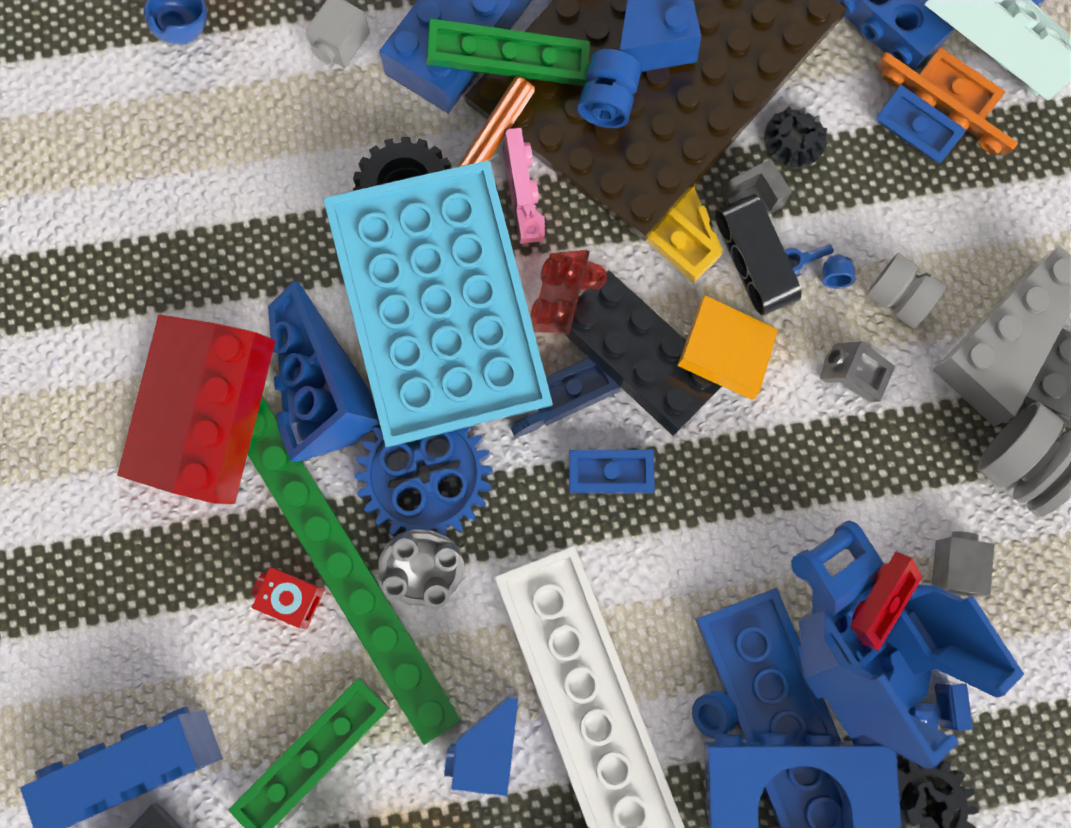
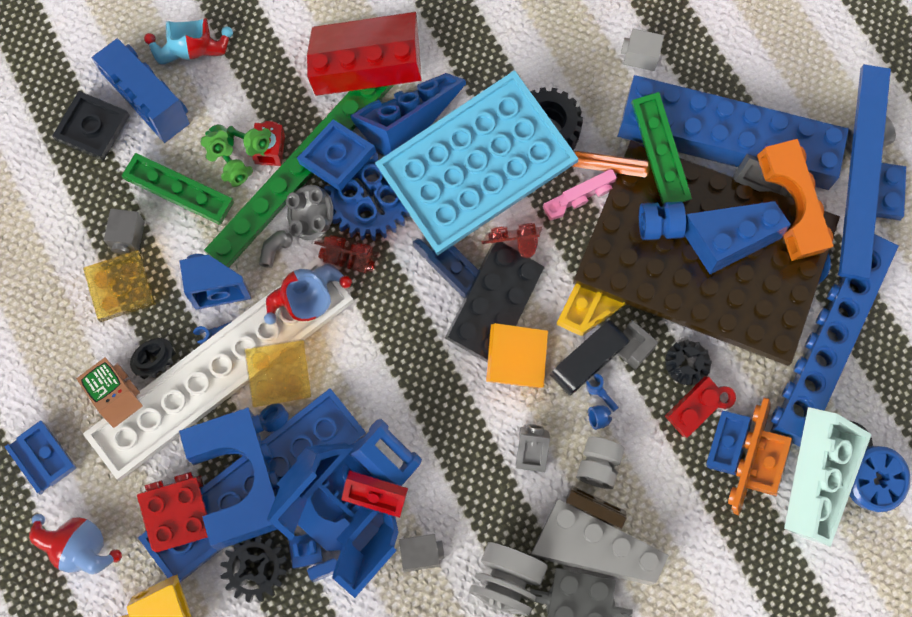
camera: 70 degrees right, 5 degrees down
(67, 673) = (188, 41): none -> piece
(272, 675) = (220, 143): none -> bright green plant
(350, 499) = (336, 154): none -> blue plate
(448, 637) = (270, 245): none -> flat silver arm
(510, 514) = (336, 244): none -> clear red hinge
(552, 612) = (304, 293): none -> medium blue piece
(554, 766) = (209, 332): none -> blue hand
(611, 472) = (409, 308): blue plate -> none
(655, 688) = (277, 372): none -> clear yellow plate
(860, 144) = (699, 405): none -> red hinge
(965, 315) = (595, 506): none -> dark brown plate

